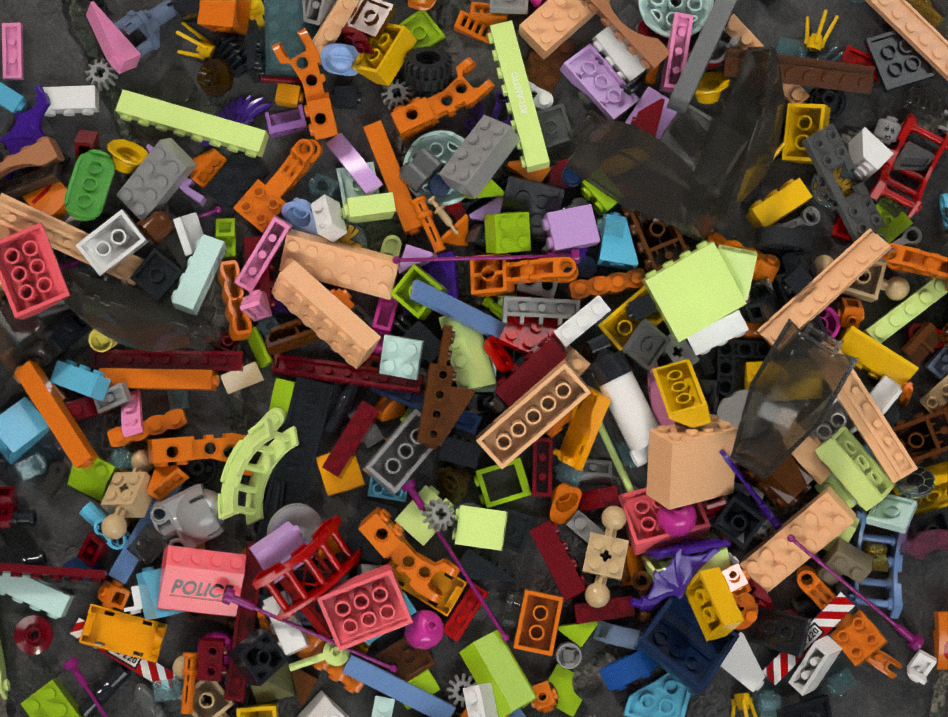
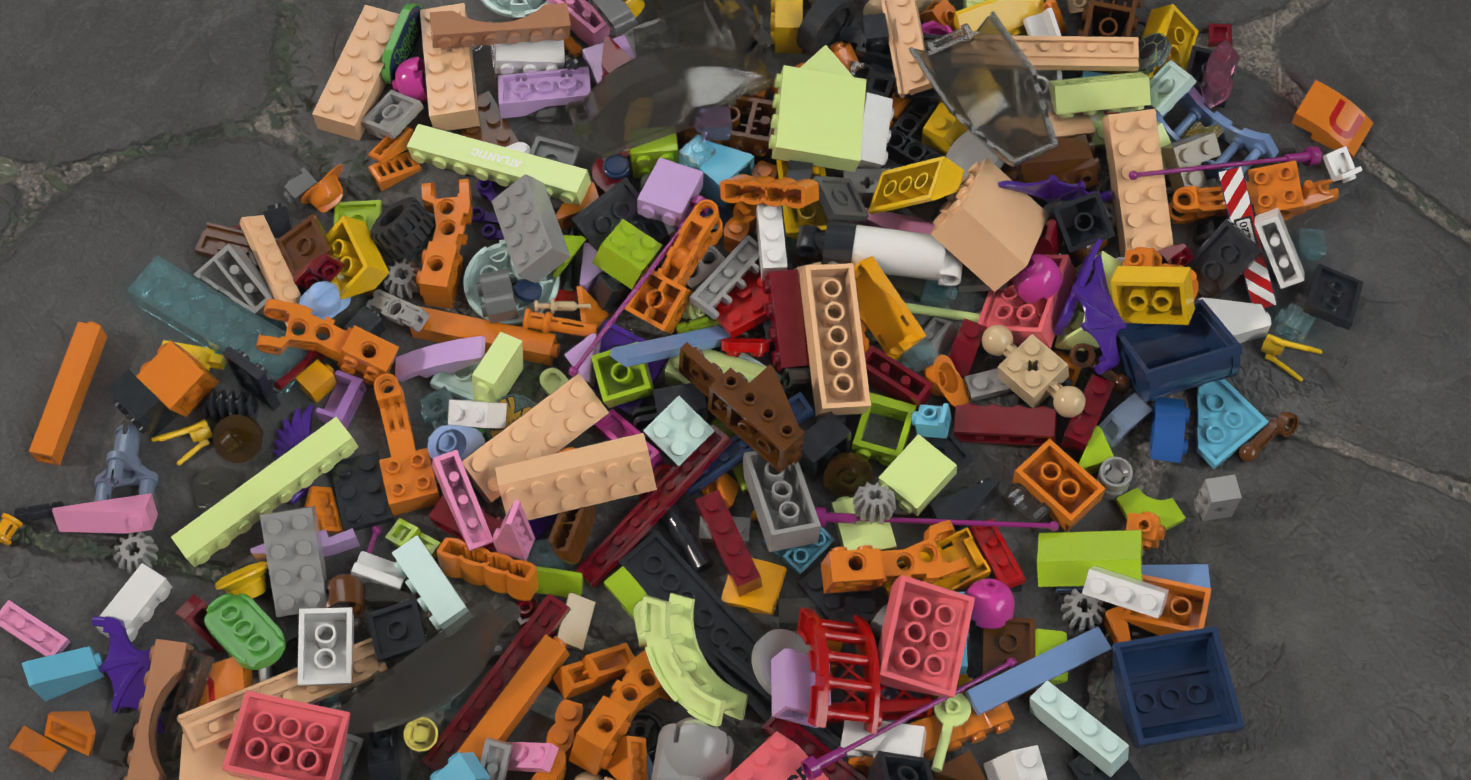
camera: 50 degrees left, 20 degrees down
(218, 413) = (593, 670): none -> orange slope
(370, 120) = (408, 315): none -> light grey piece
(527, 518) = (932, 420): none -> medium azure brick
(612, 297) = (769, 191): none -> orange brick
(637, 225) = (714, 123): none -> clear purple brick

